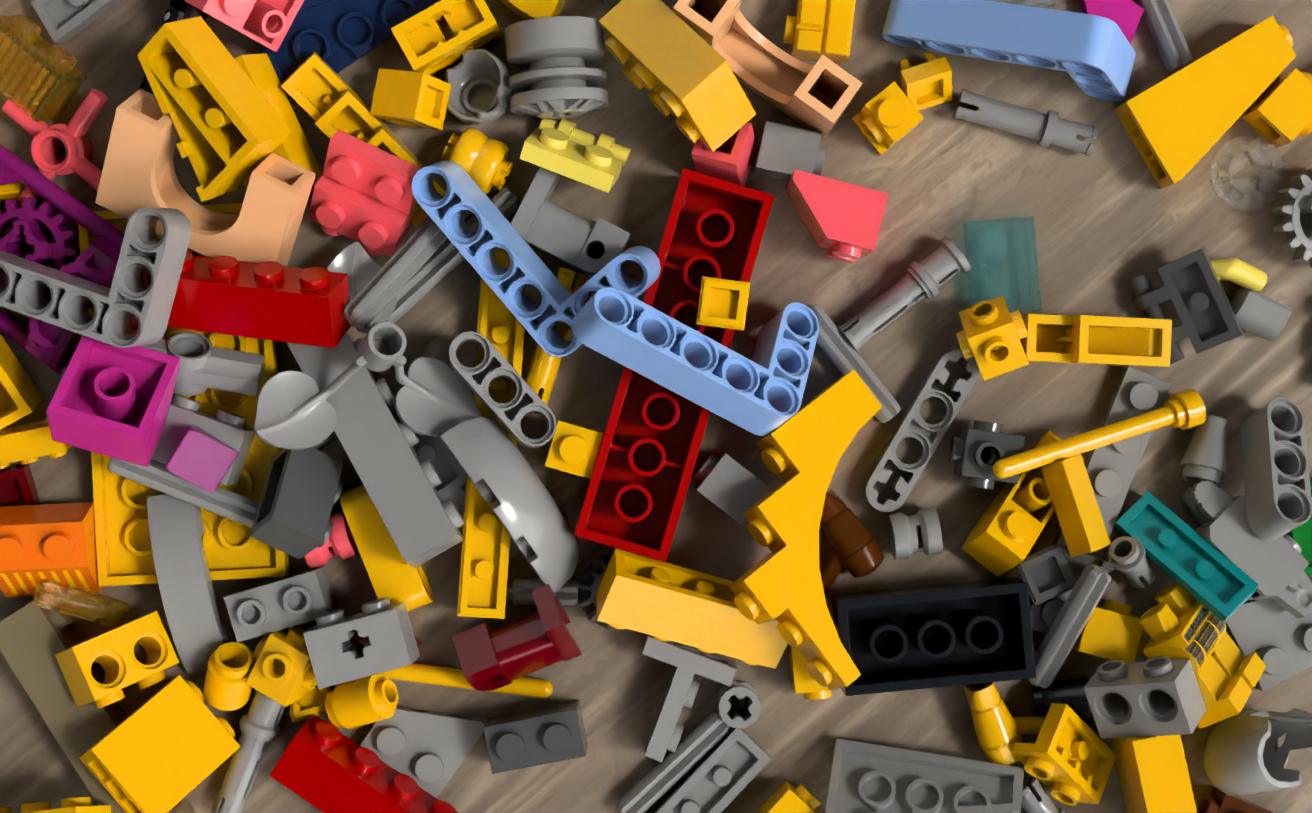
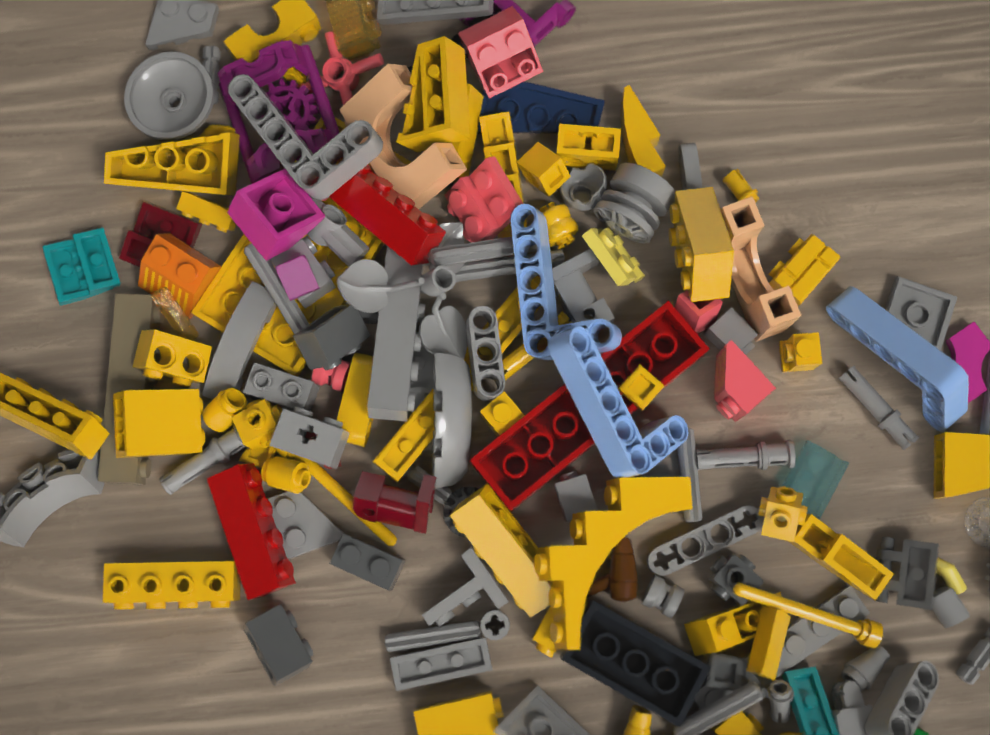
camera: 40 degrees right, 10 degrees down
(927, 82) = (836, 348): yellow tile -> none

